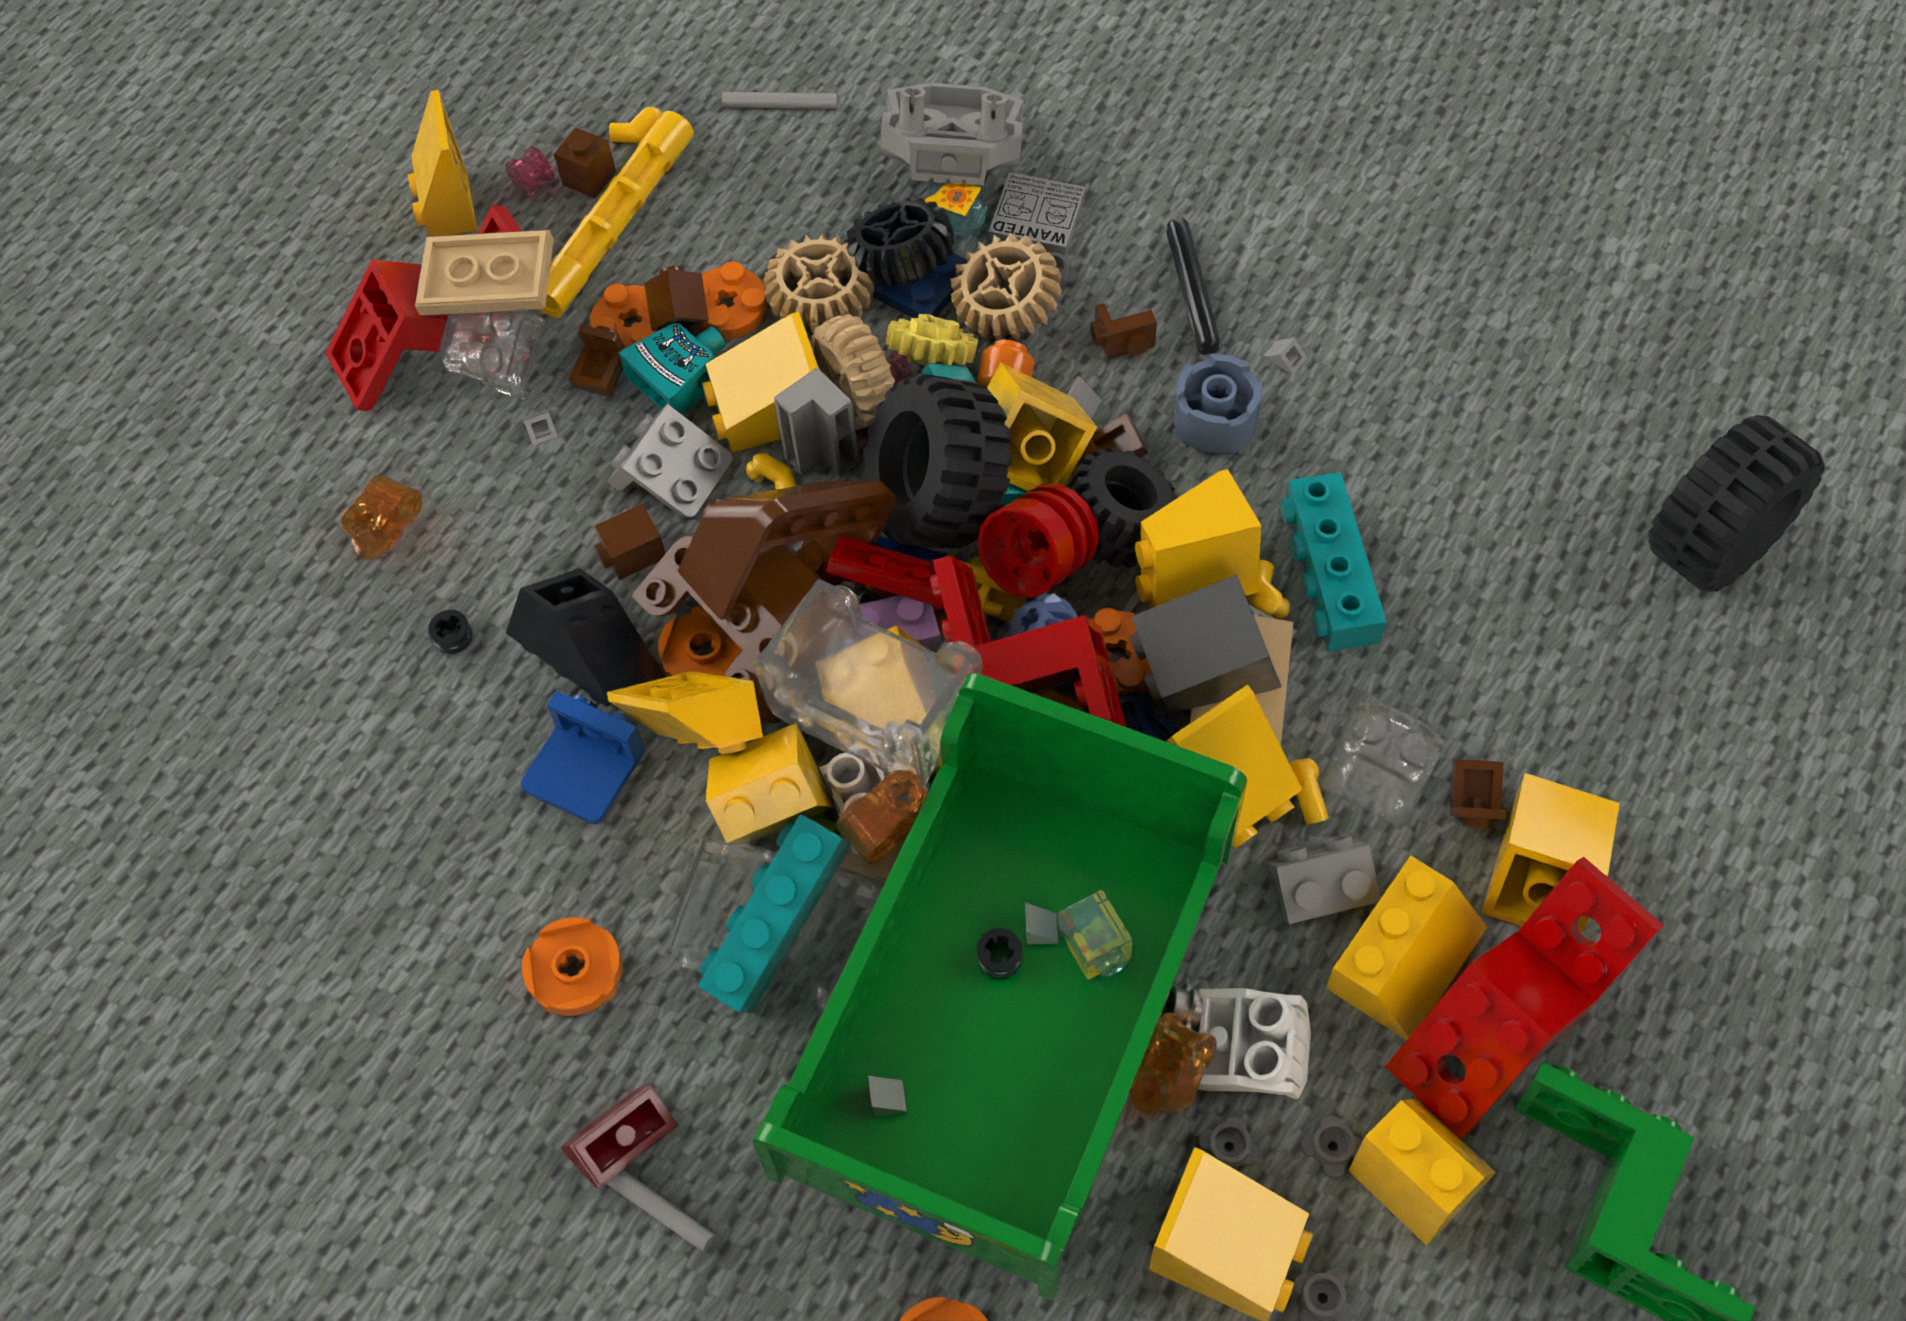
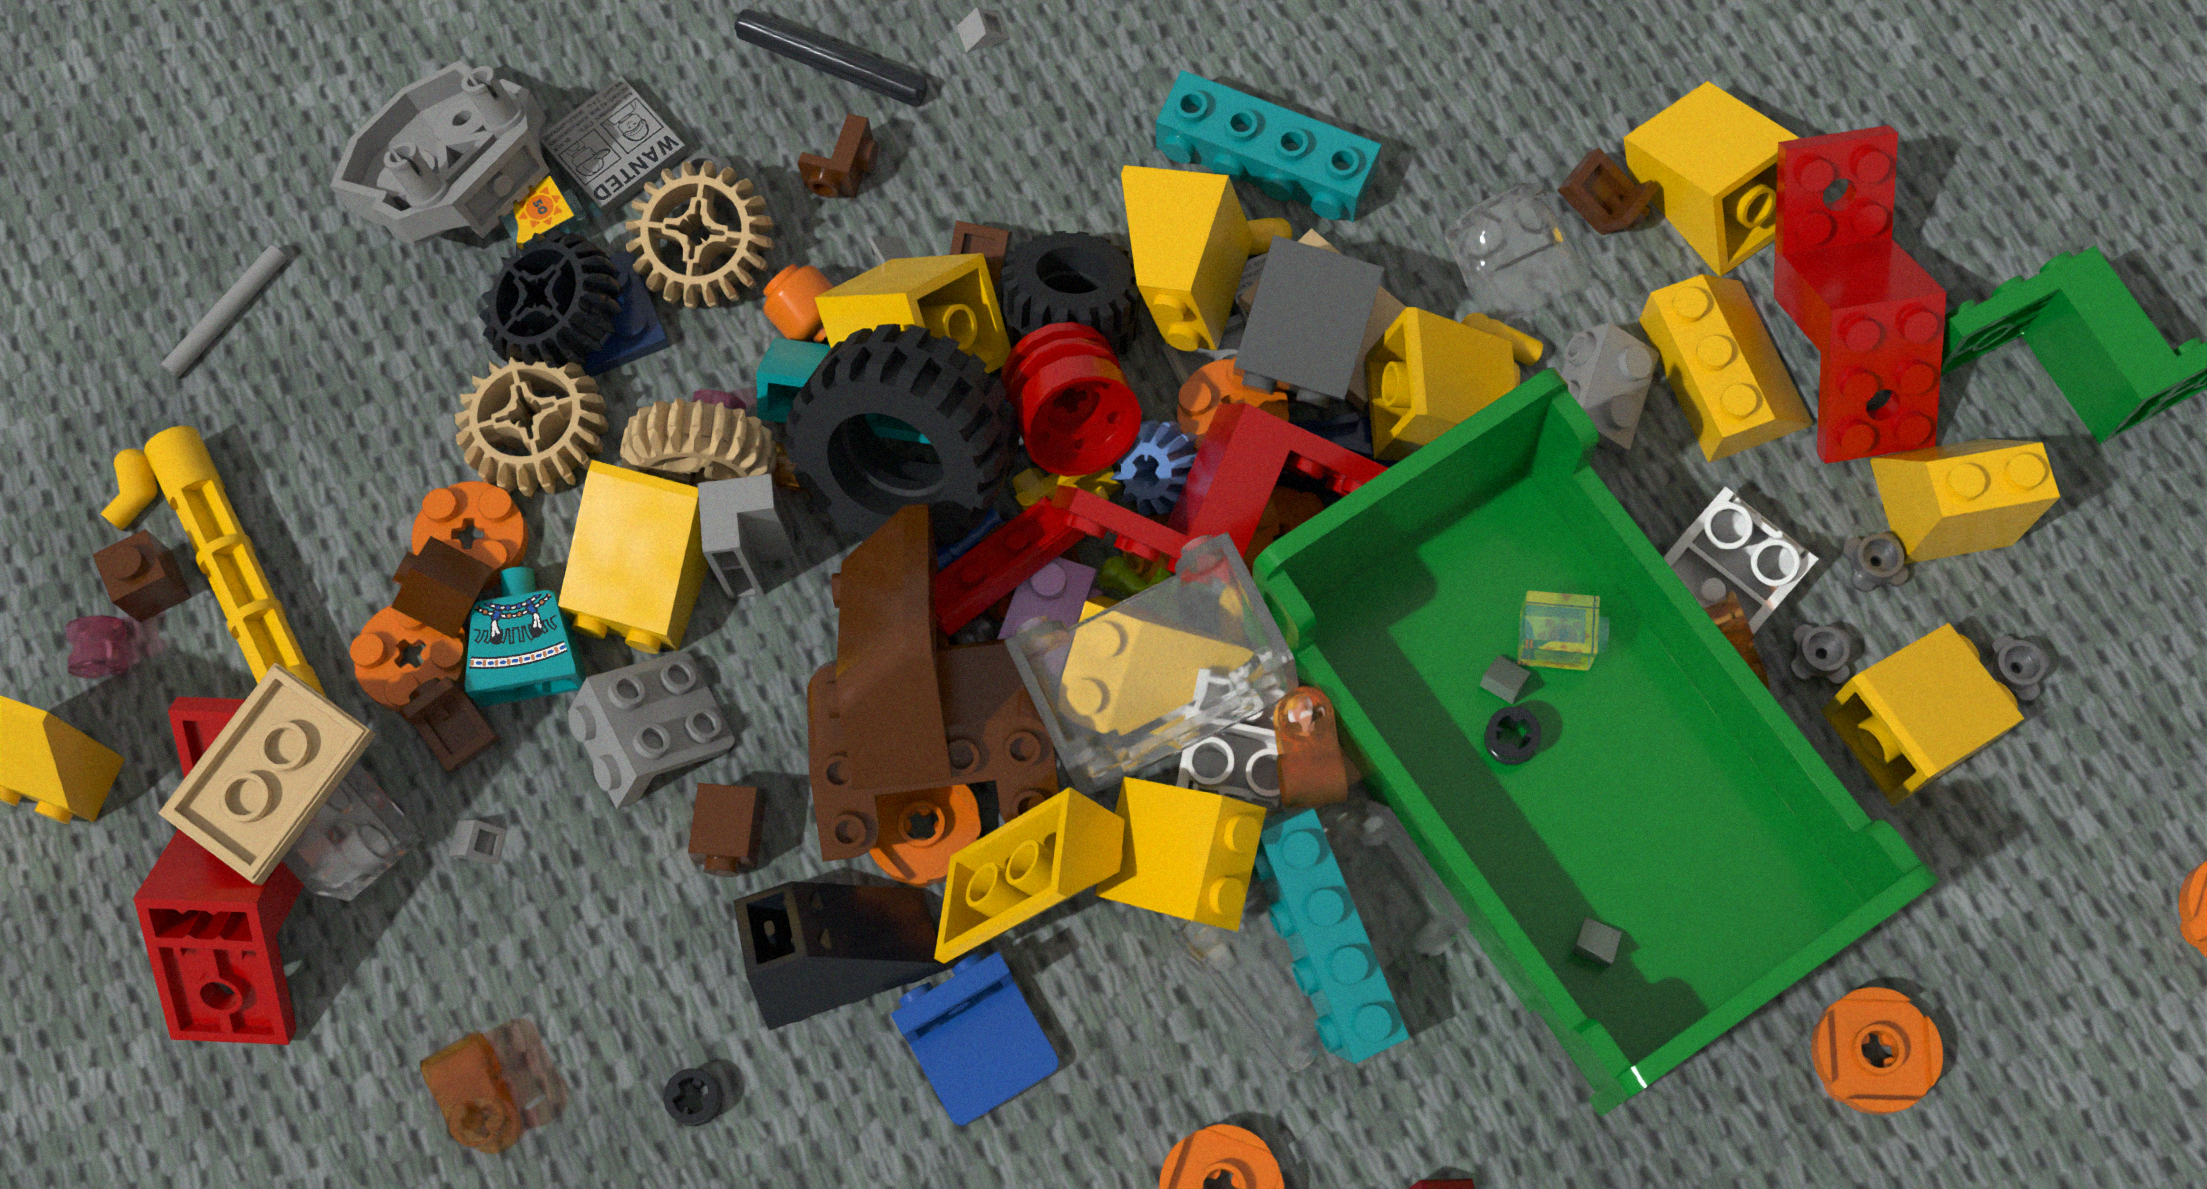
camera: 55 degrees left, 10 degrees up
(768, 467) = (749, 615): yellow arm -> none
(931, 341) = (713, 352): light yellow gear -> none
(1217, 404) = (1008, 128): sand blue brick -> none

